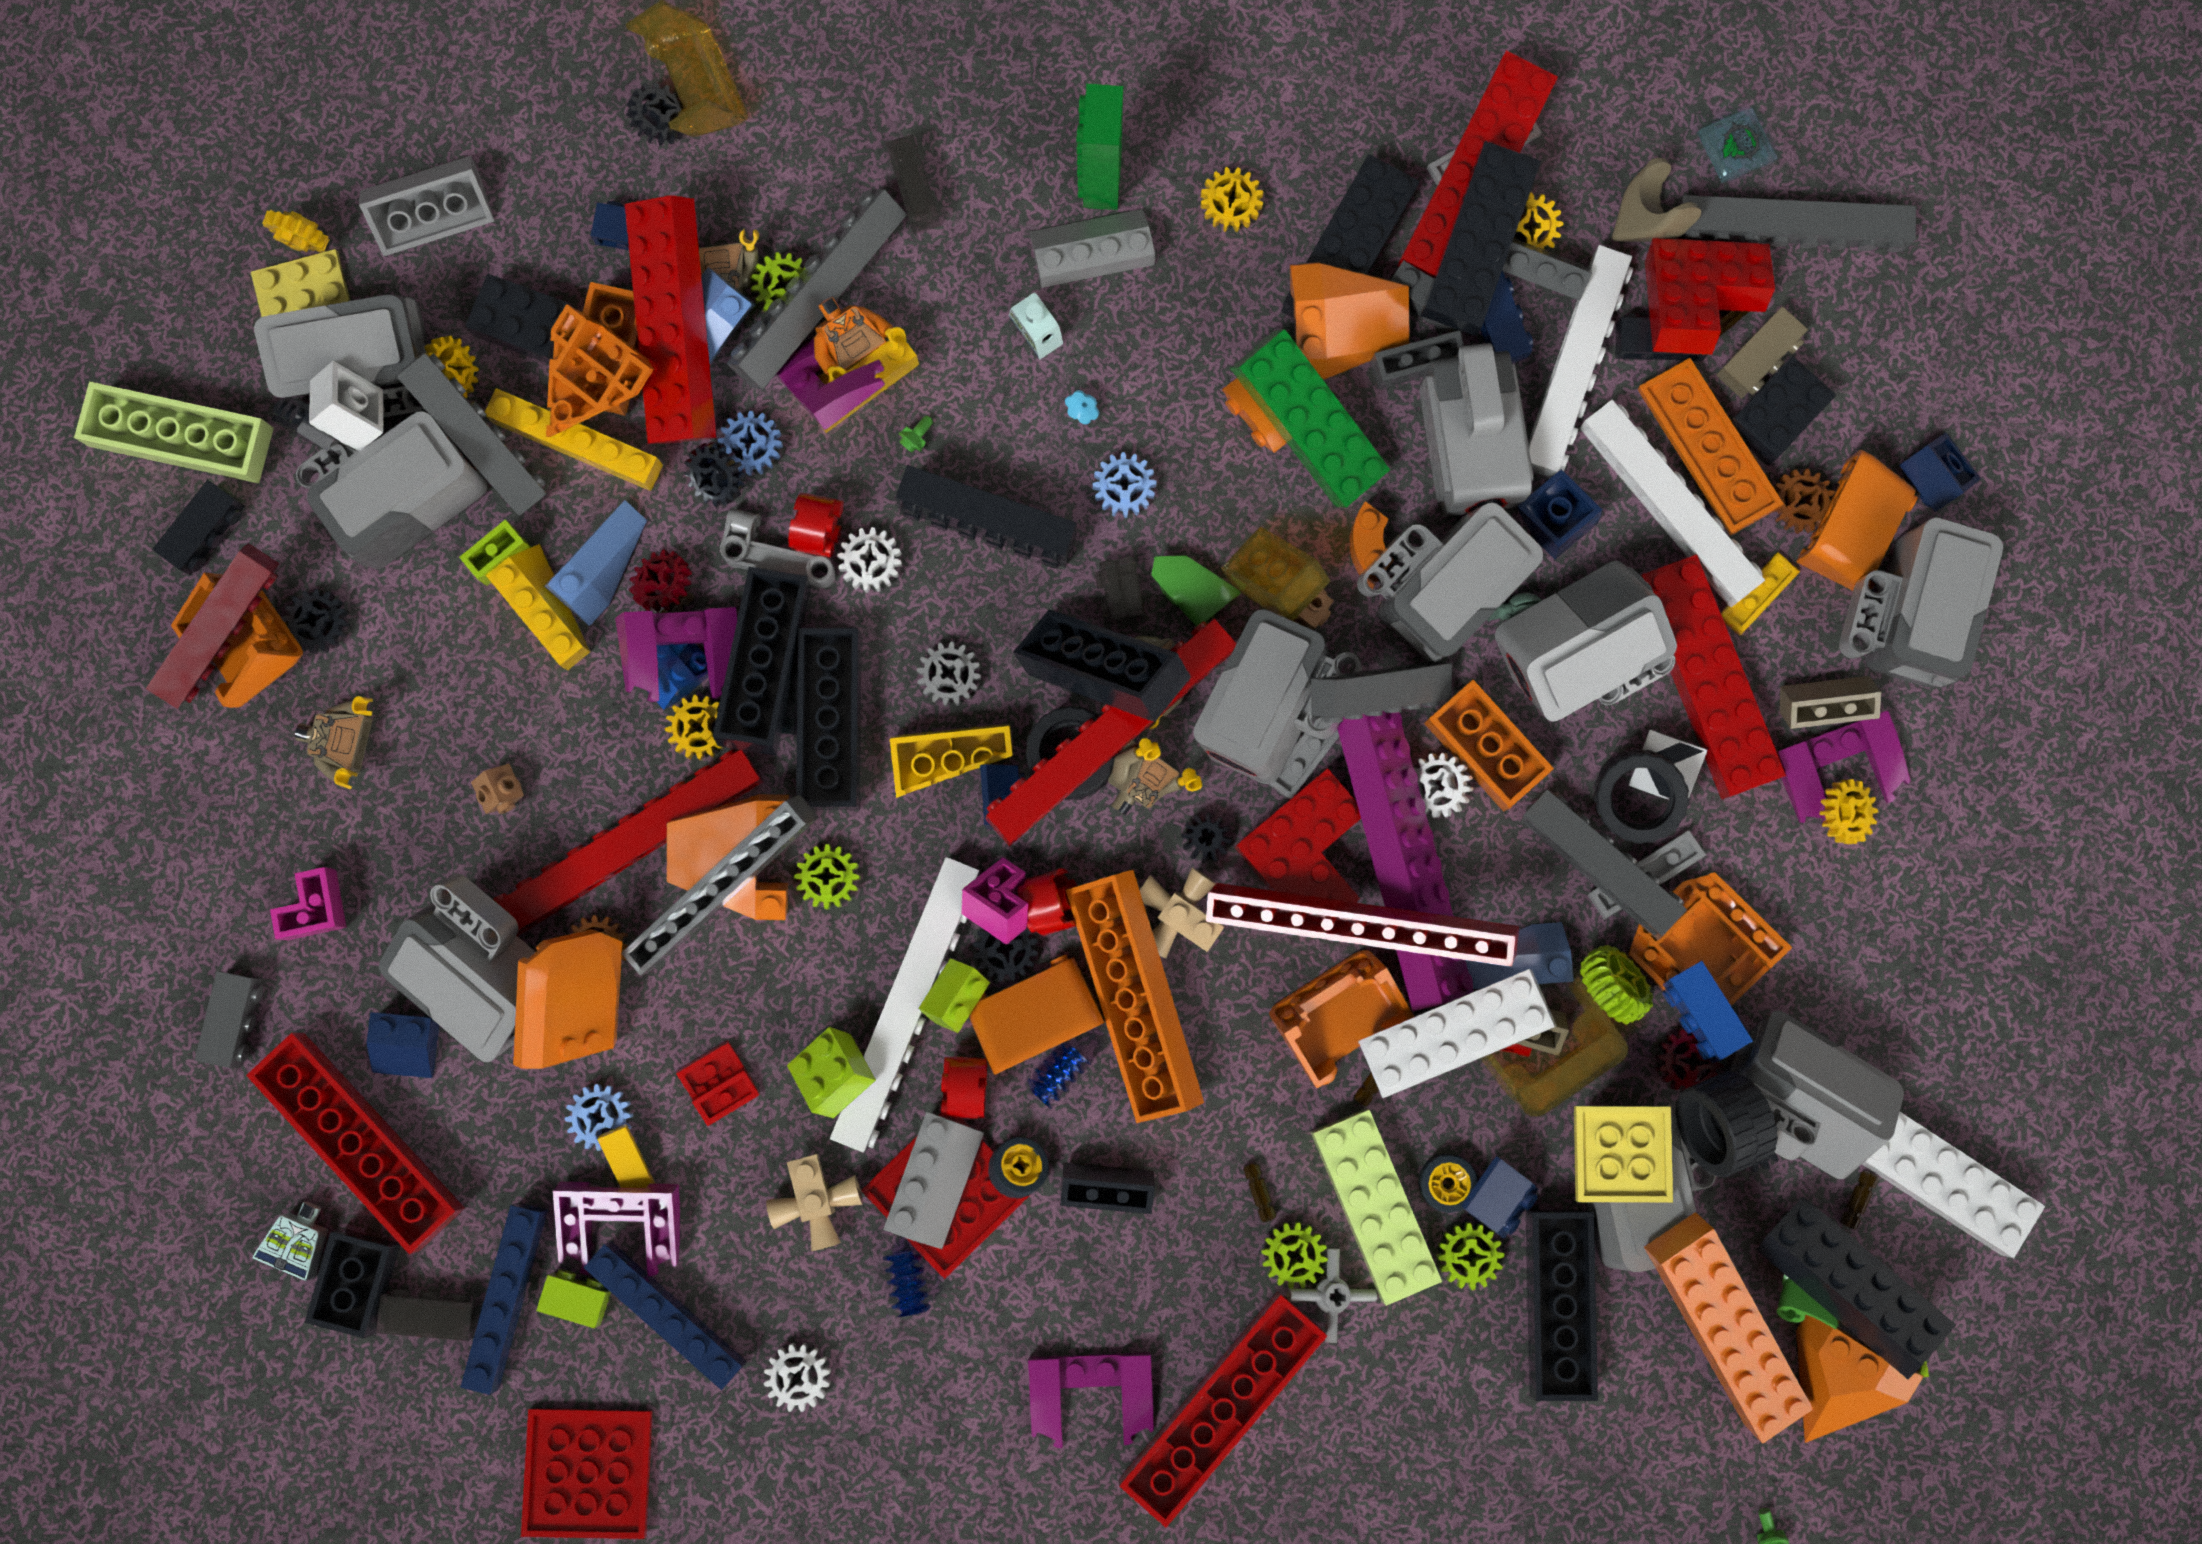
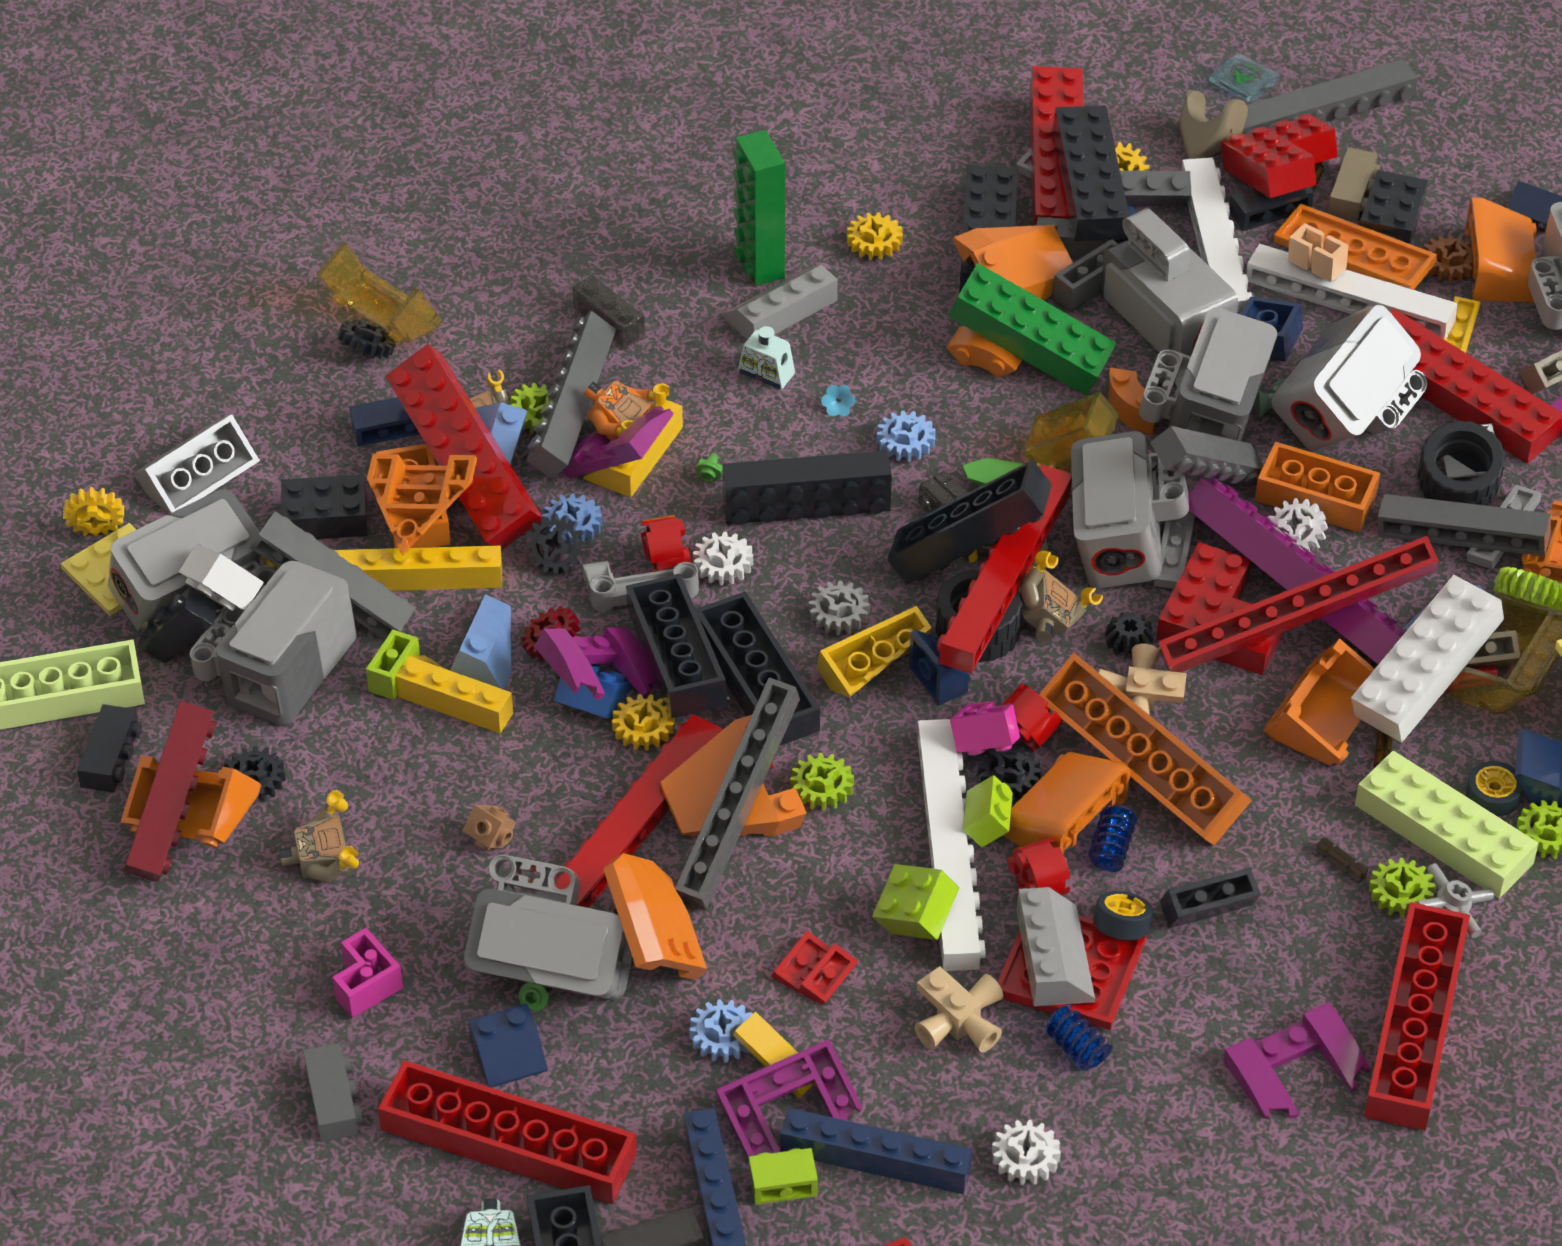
camera: 25 degrees left, 35 degrees down
(1646, 445) = (1308, 252): none -> light nougat piece

